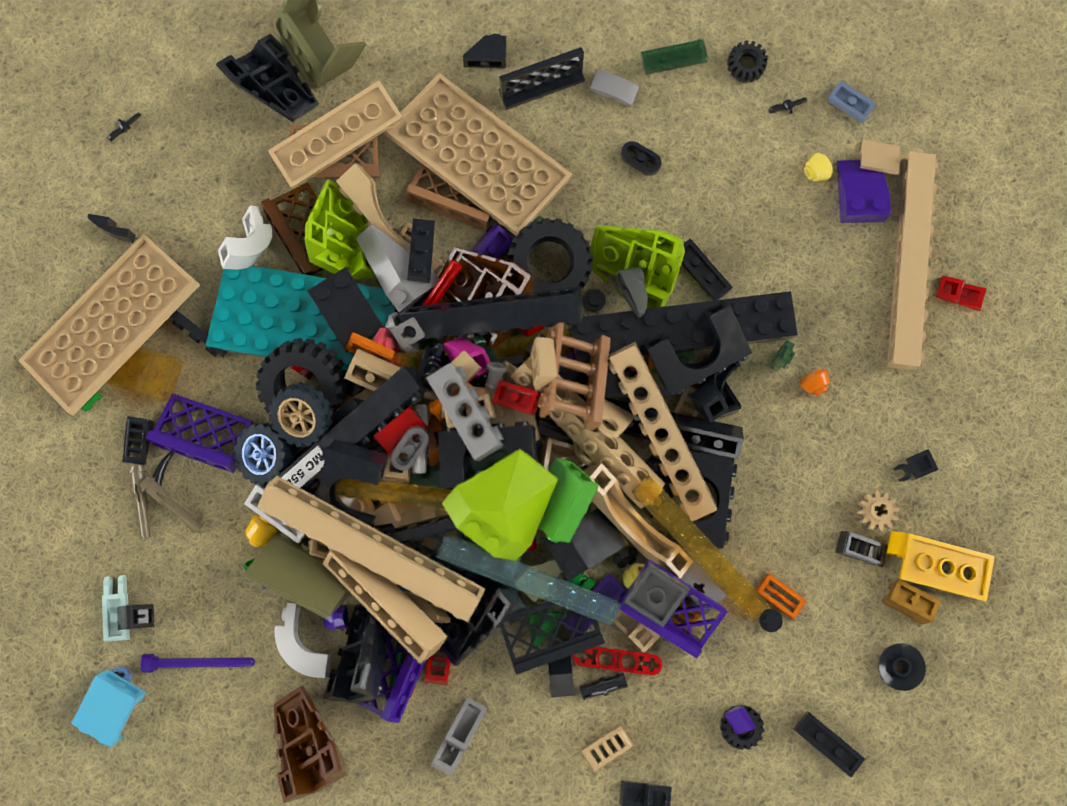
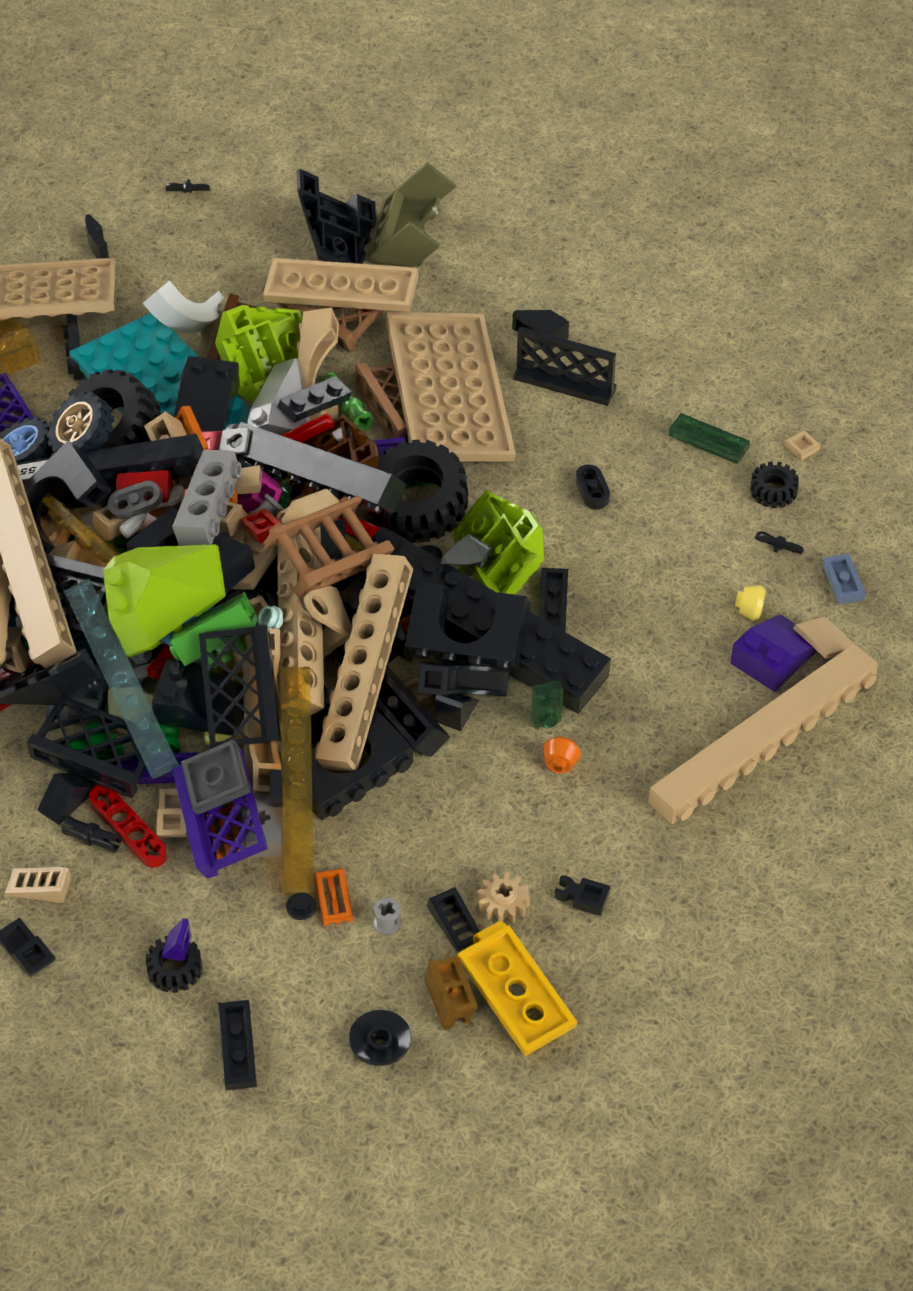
camera: 40 degrees right, 30 degrees down
(441, 227) = (354, 409): none -> bright green pin
(585, 459) = (270, 616): none -> light aqua plate
(613, 86) = (627, 423): light grey slope -> none
(628, 508) = (264, 680): none -> black fence
(697, 568) = (276, 792): none -> black tile
(731, 13) = (802, 445): none -> tan tile
(821, 580) = (386, 916): none -> light grey bush
(963, 294) = (787, 795): red slope -> none

